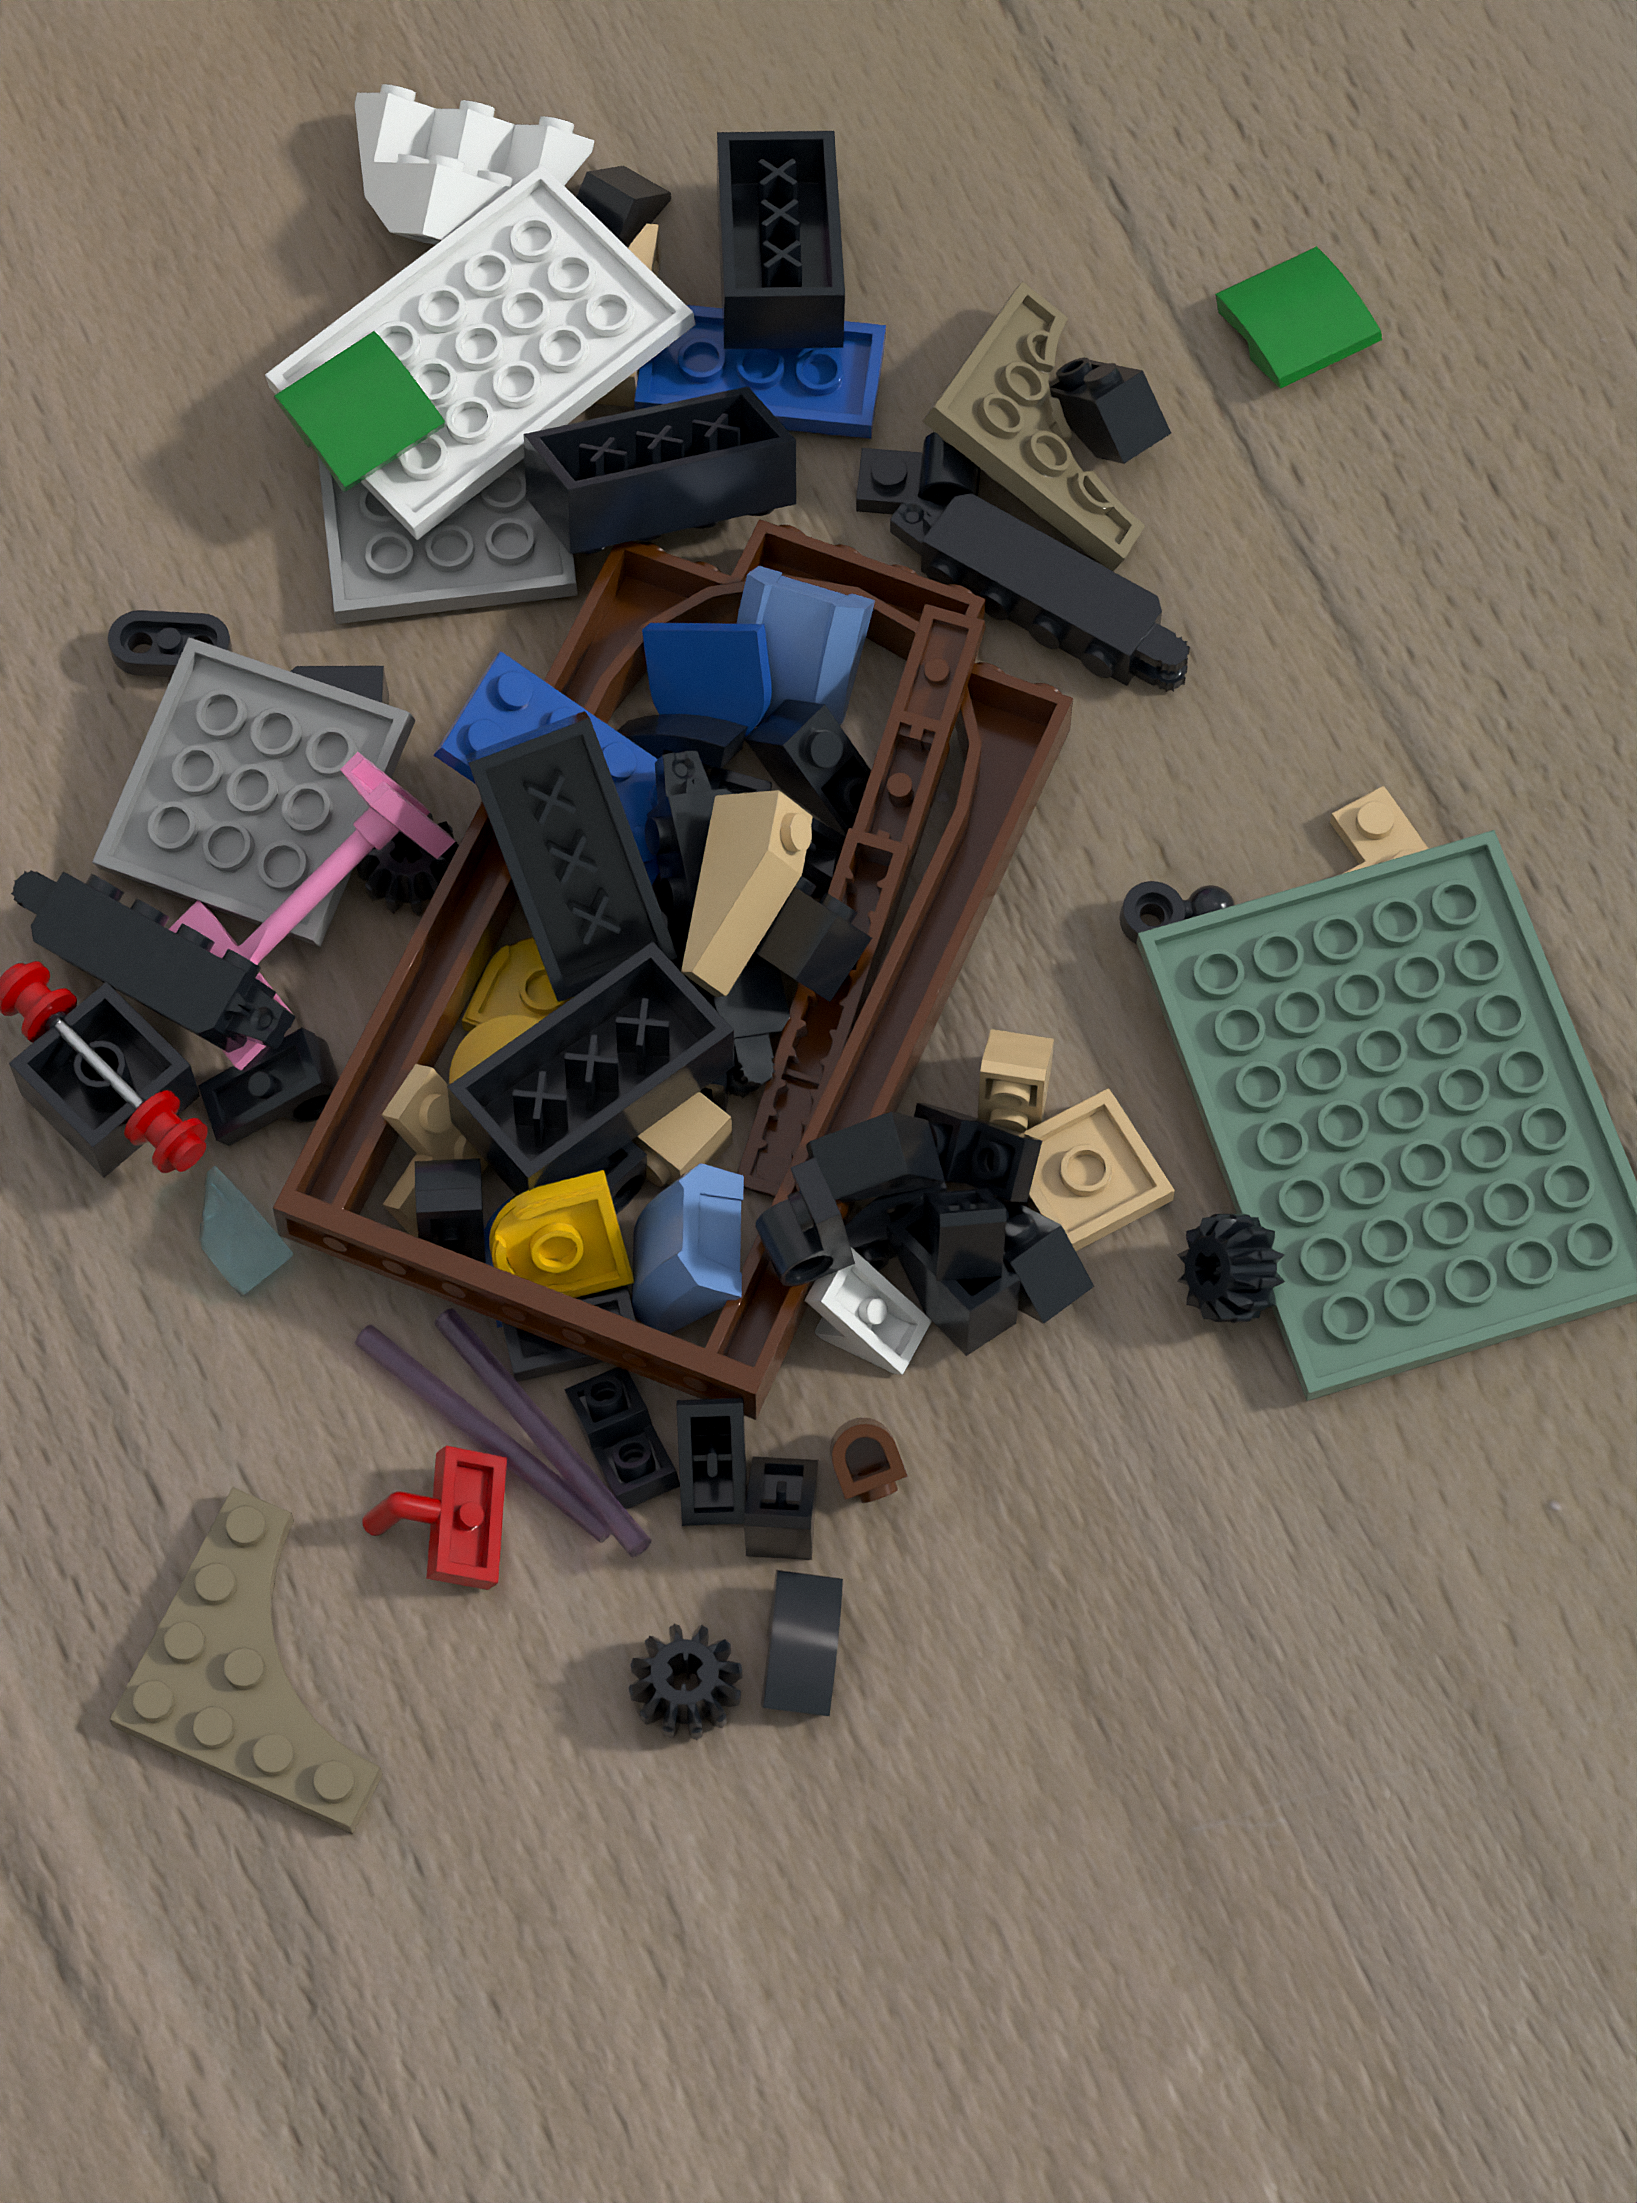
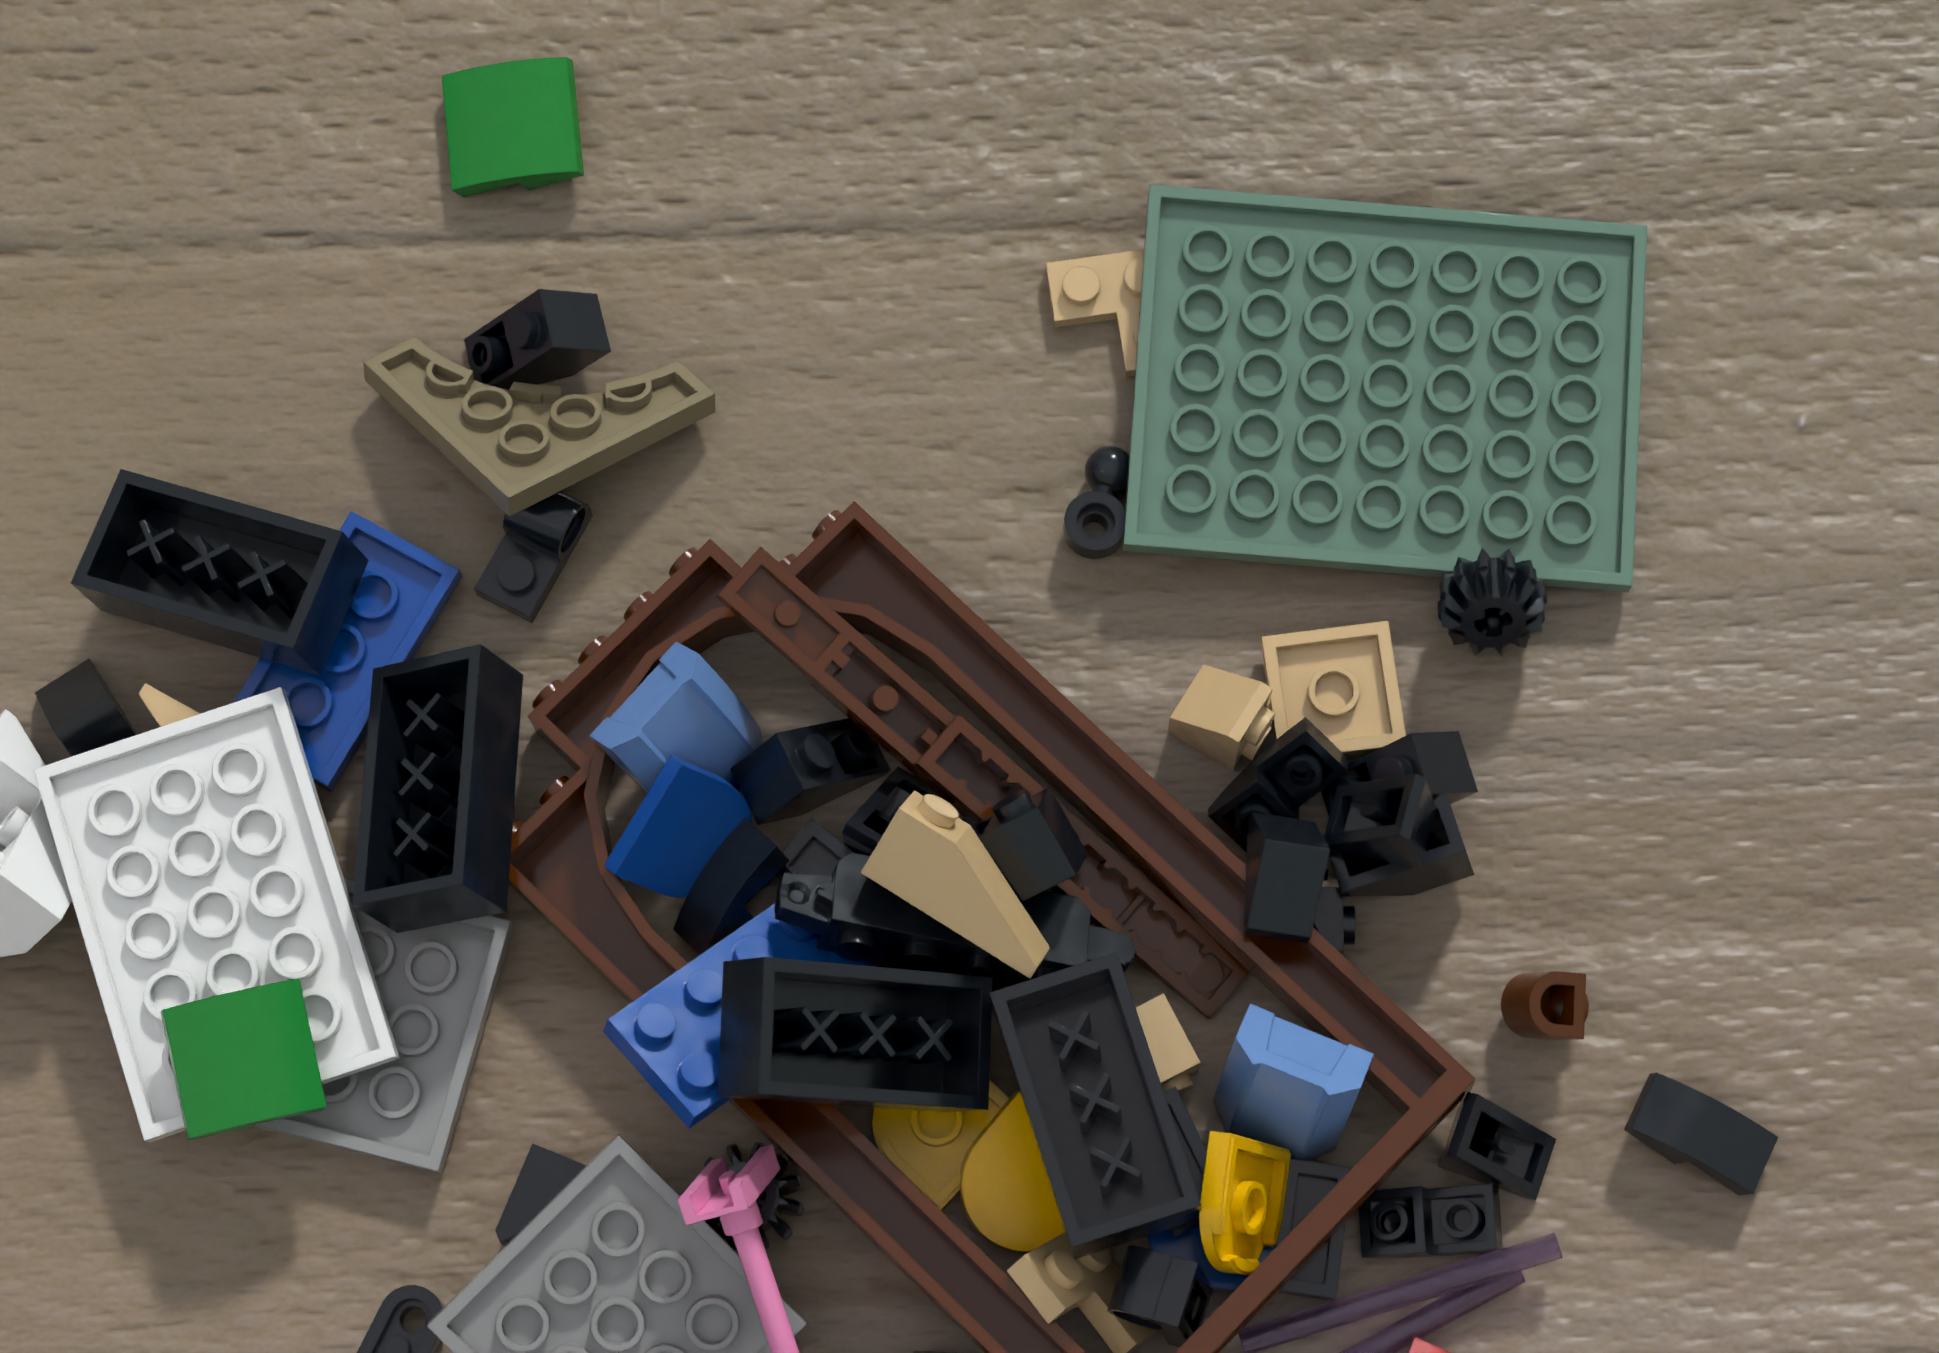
camera: 65 degrees left, 10 degrees up
(685, 1656) = (1707, 1233): black gear -> none
(781, 1508) = (1558, 1097): black slope -> none
(806, 1230) = (1347, 967): black plate -> none
(868, 1316) = (1402, 946): white slope -> none
(1044, 588) = (707, 482): black hinge -> none

